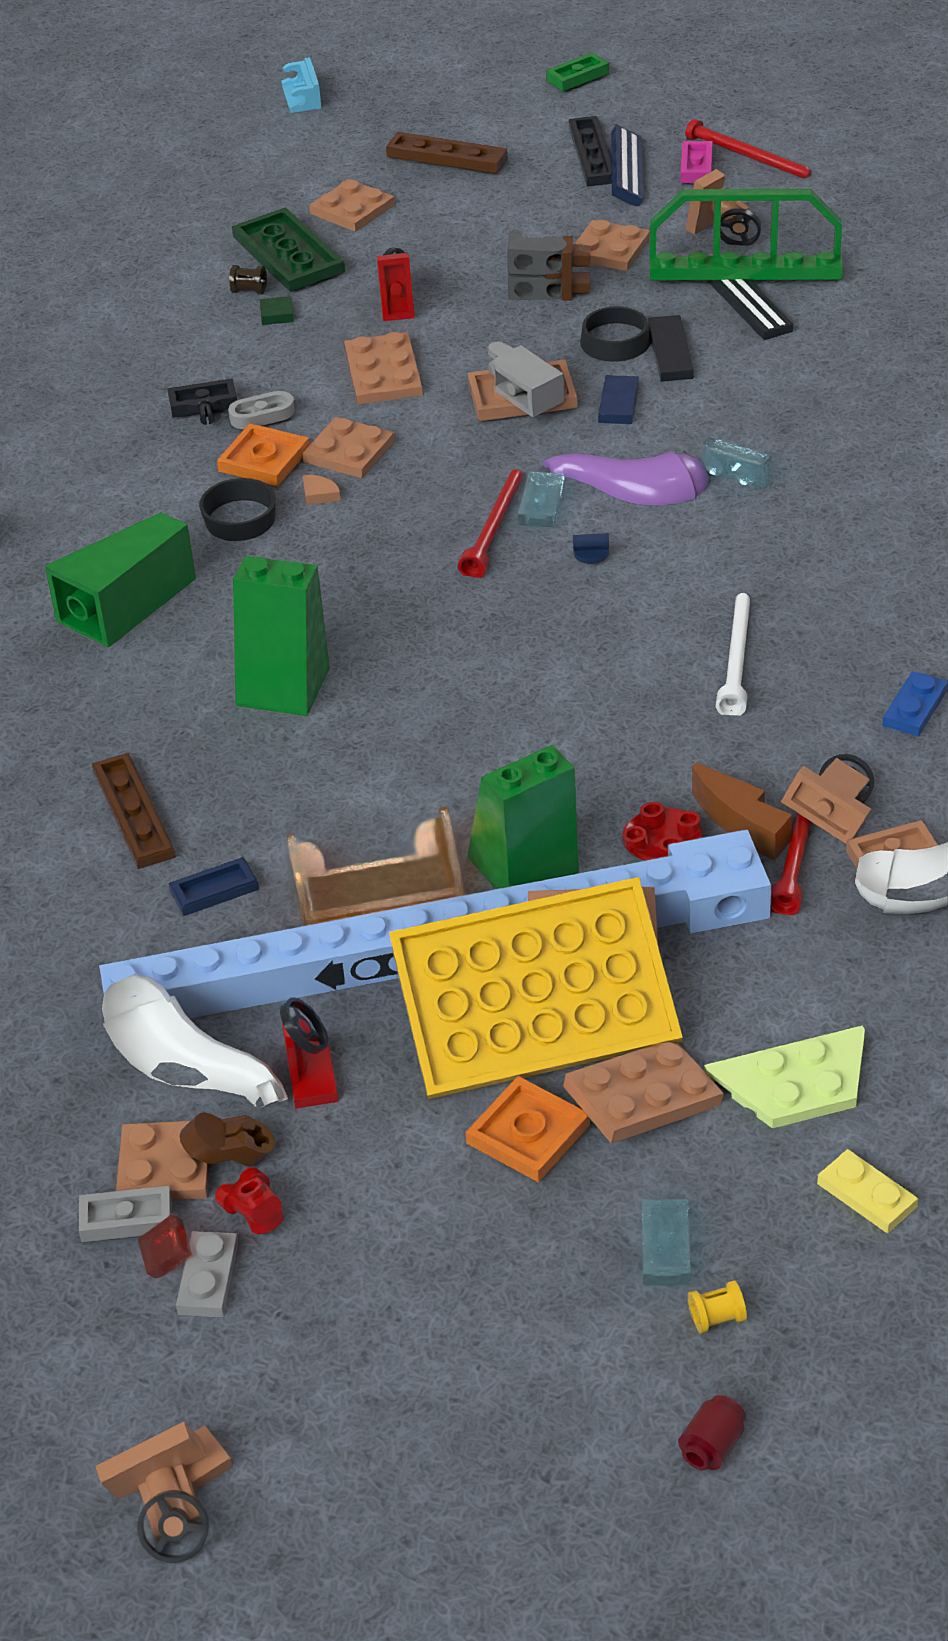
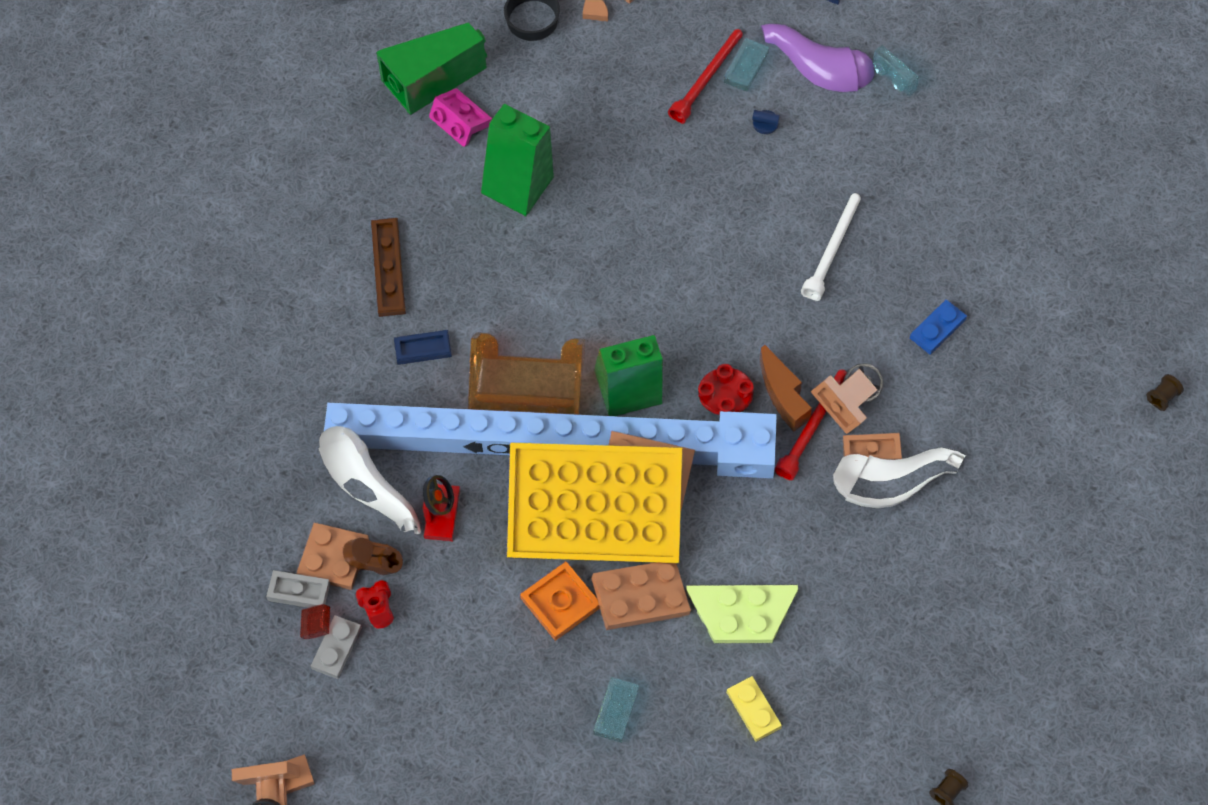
camera: 15 degrees right, 20 degrees up
(175, 631) = (458, 116): none -> dark pink bracket
(717, 1306) = (630, 765): yellow bush -> none

